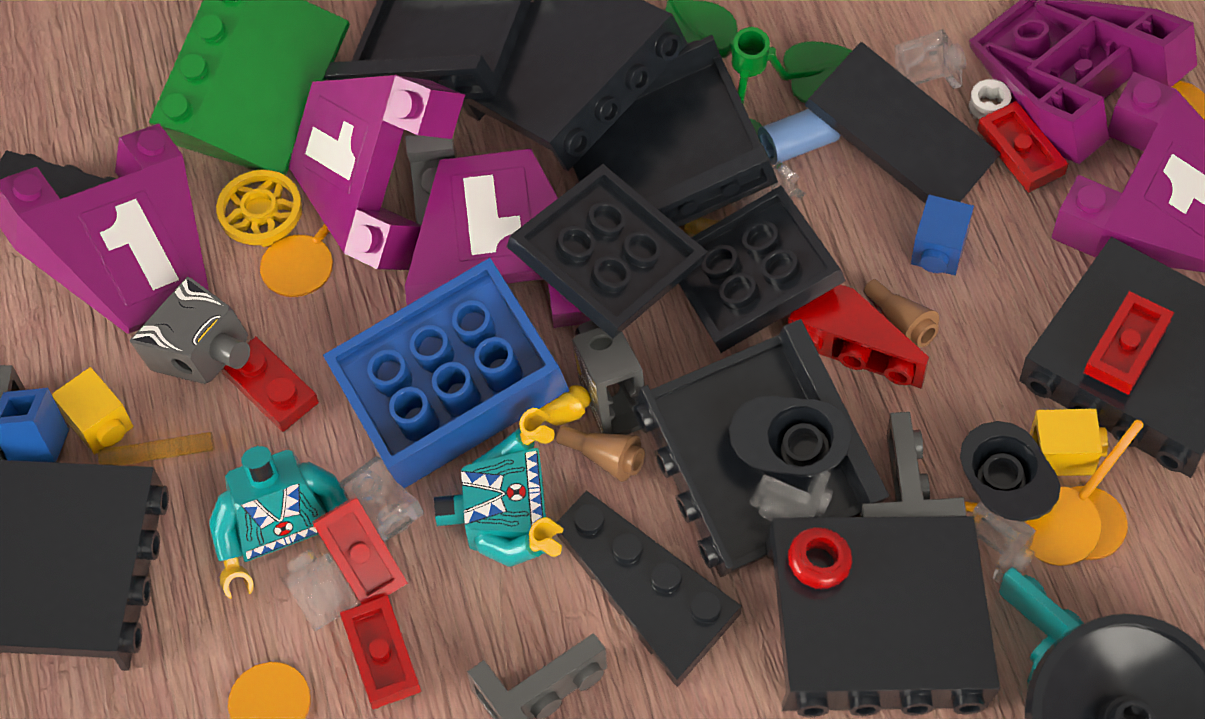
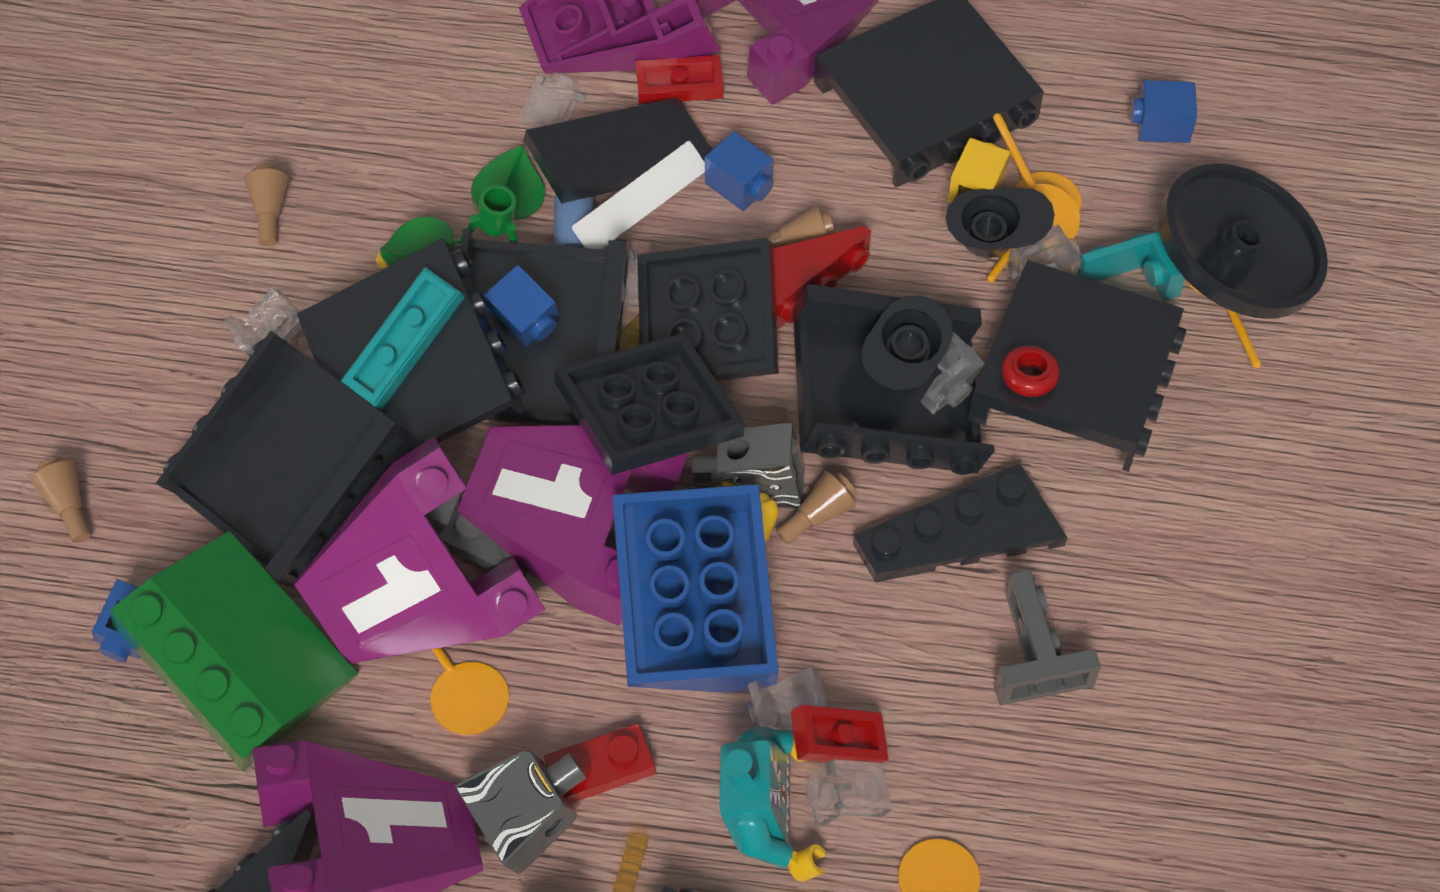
camera: 70 degrees left, 0 degrees up
(259, 207) = (385, 705): yellow wheel -> none
(380, 652) = (939, 760): red plate -> none
(506, 498) = (841, 600): torso -> none
(570, 40) = (403, 338): none -> teal tile
(671, 121) = (523, 306): none -> blue brick
(854, 165) = (640, 197): none -> white sticker
(910, 487) = (967, 292): dark grey bracket -> none
(991, 89) = (621, 92): white bush -> none
(1128, 342) = (929, 84): red plate -> none

